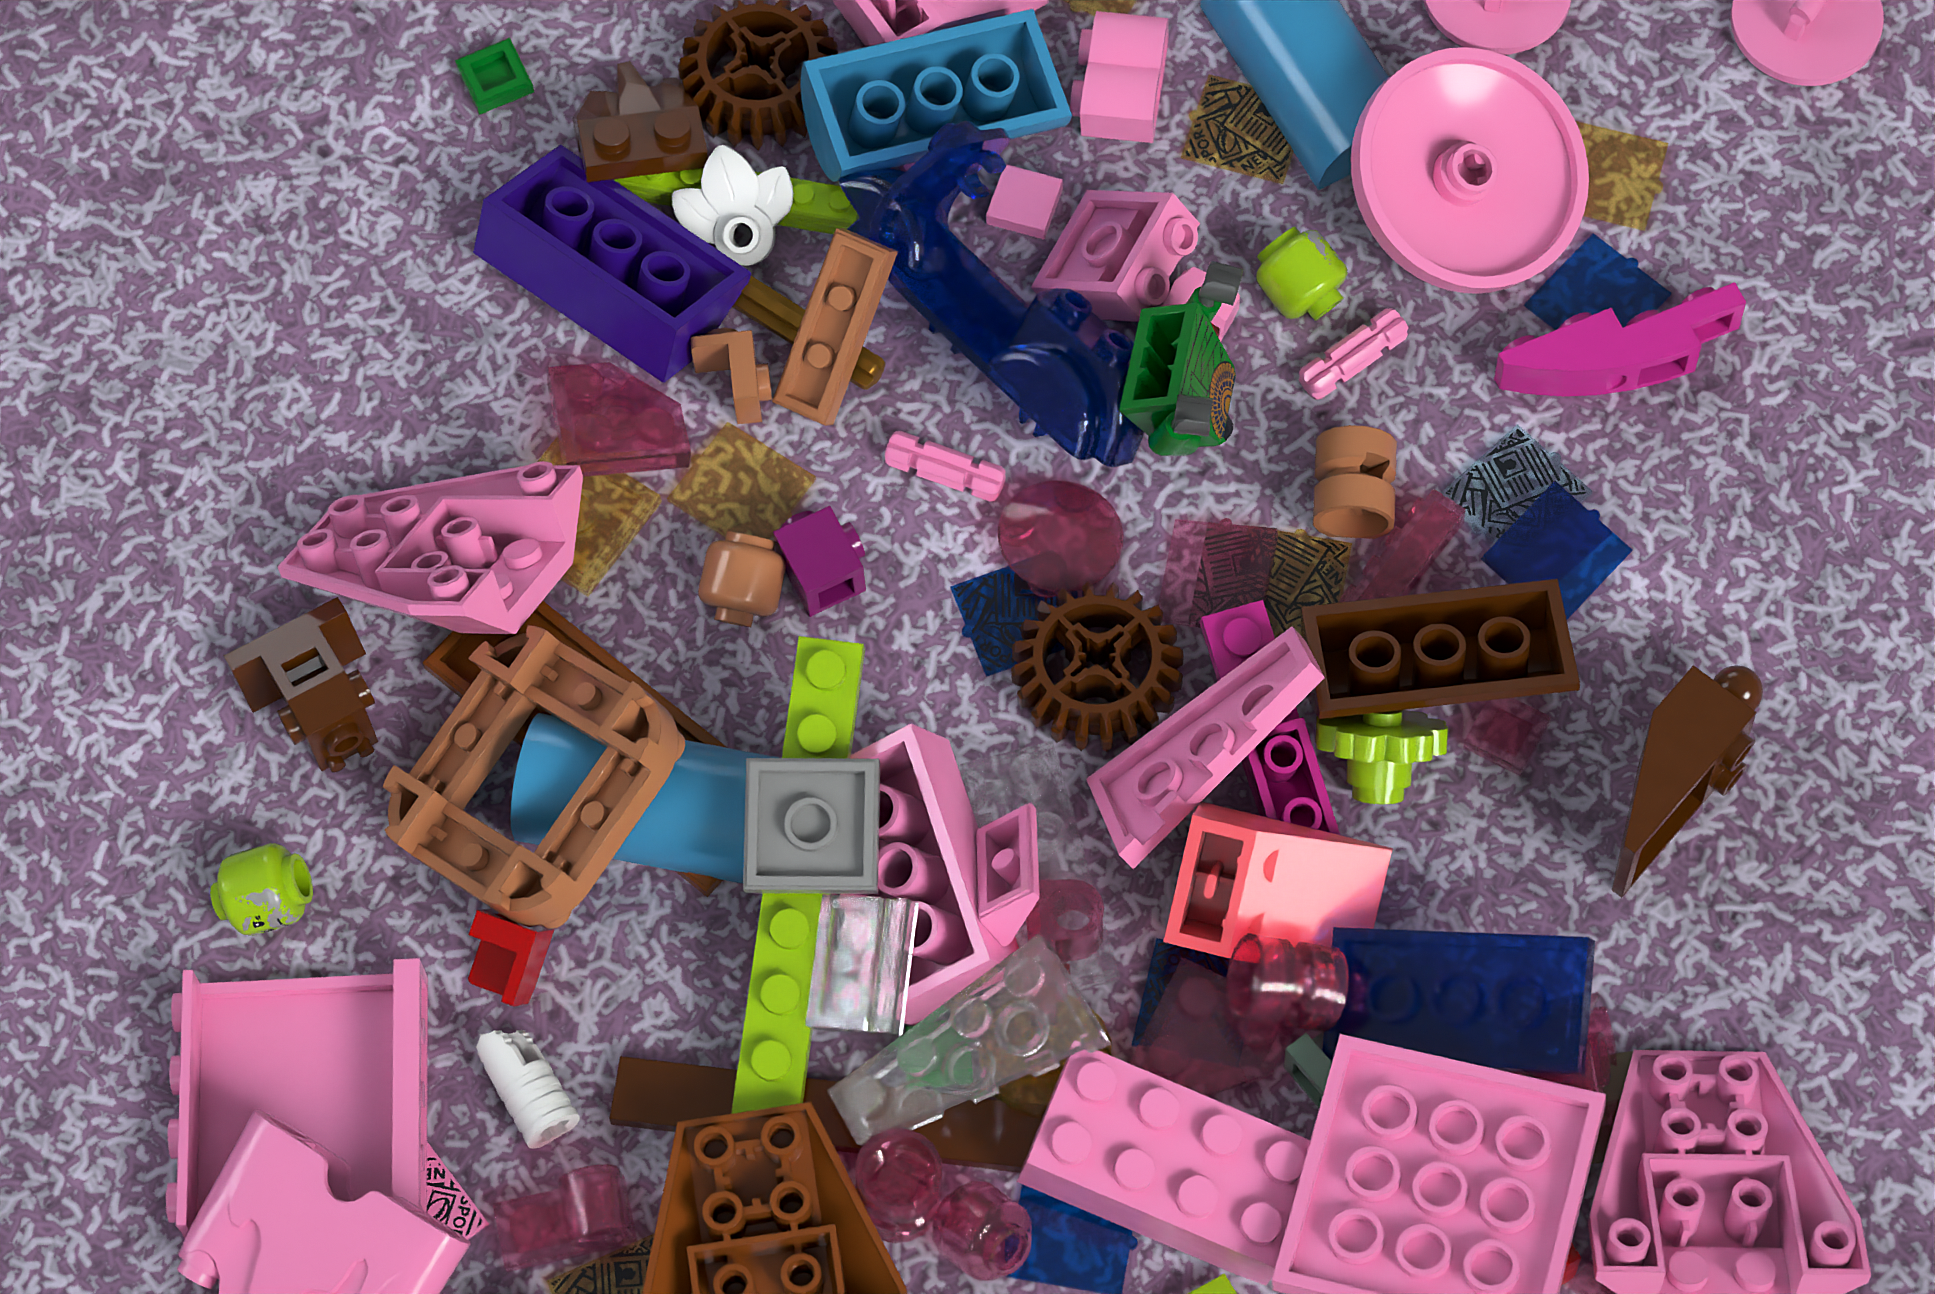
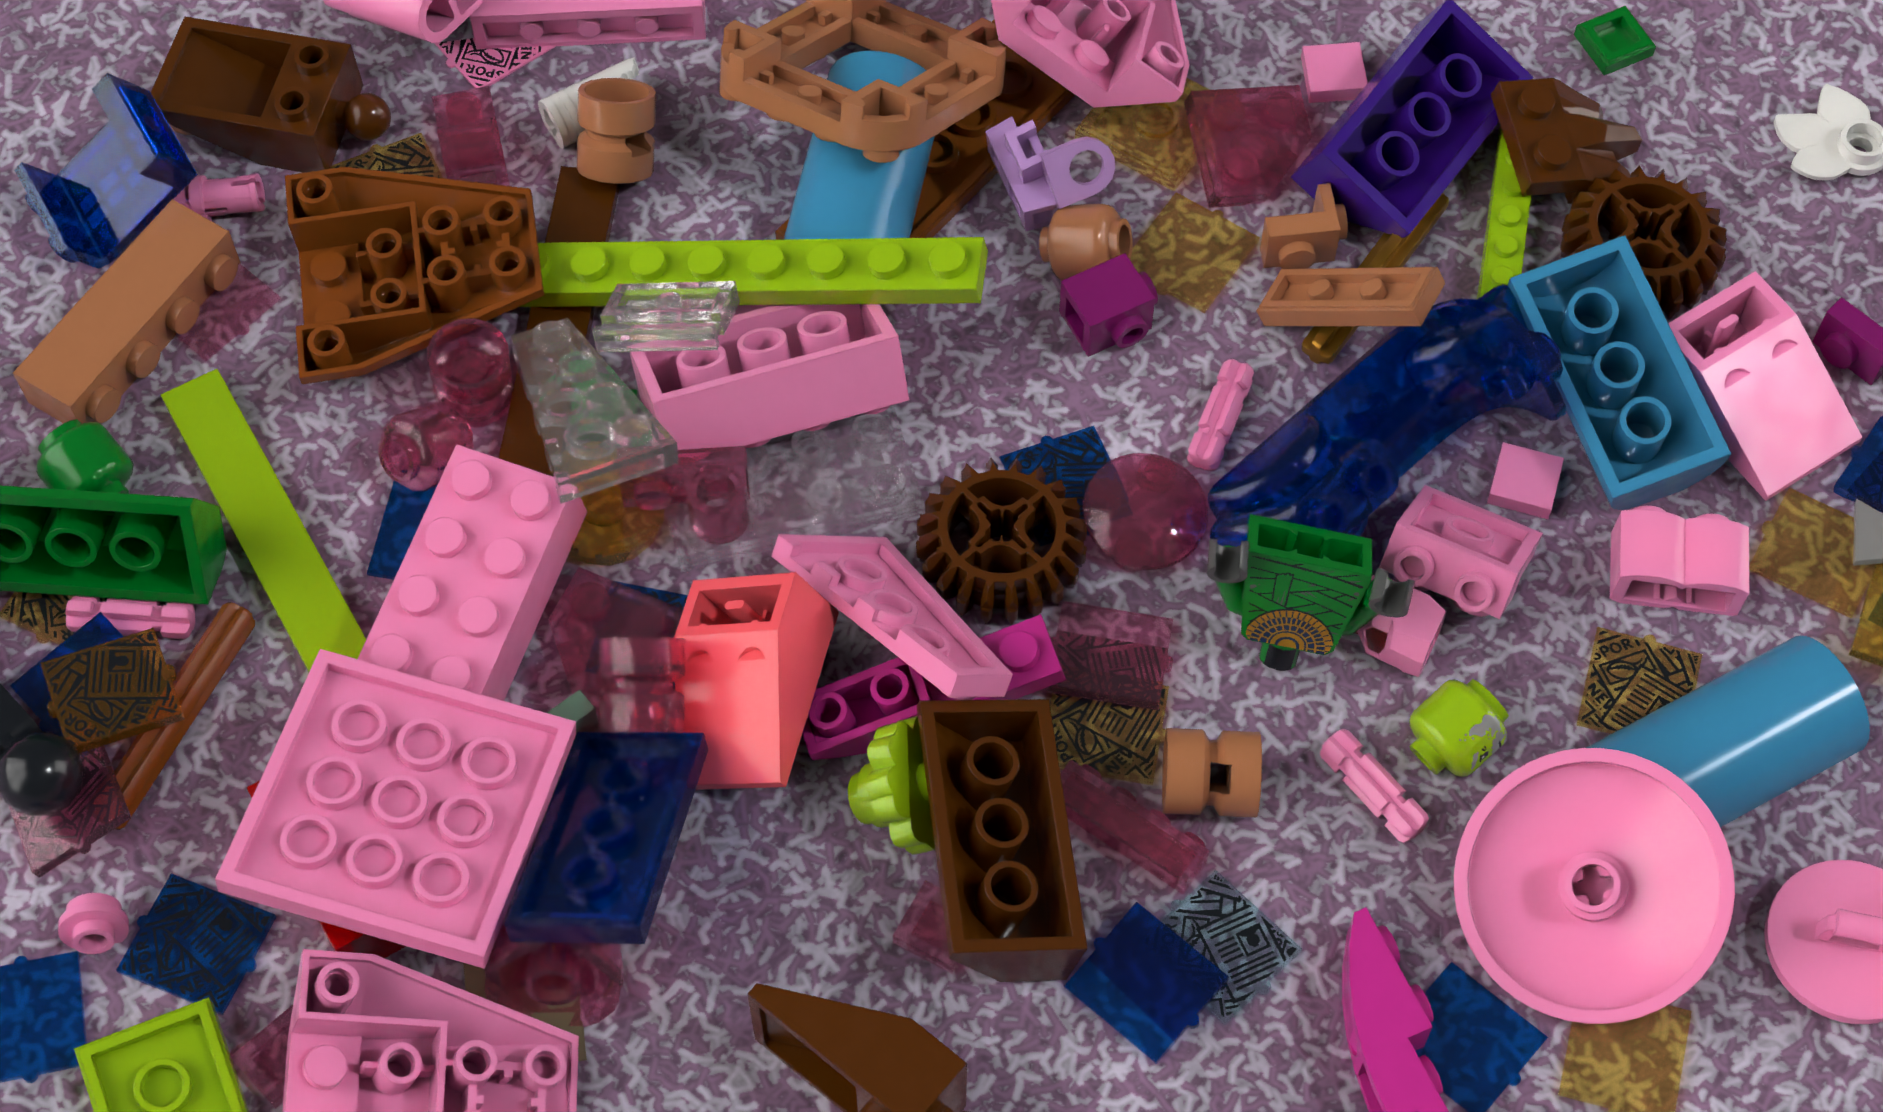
camera: 85 degrees right, 5 degrees down
(508, 956) = (697, 88): red panel -> none
(520, 338) = (1333, 71): none -> bright pink tile
(586, 1045) = (615, 137): none -> nougat wheel
(686, 616) = (1041, 177): none -> lavender piece
(735, 196) = (1481, 222): white plate -> none
(811, 825) = (793, 259): light grey tile -> none
(1007, 872) = (753, 427): bright pink slope -> none

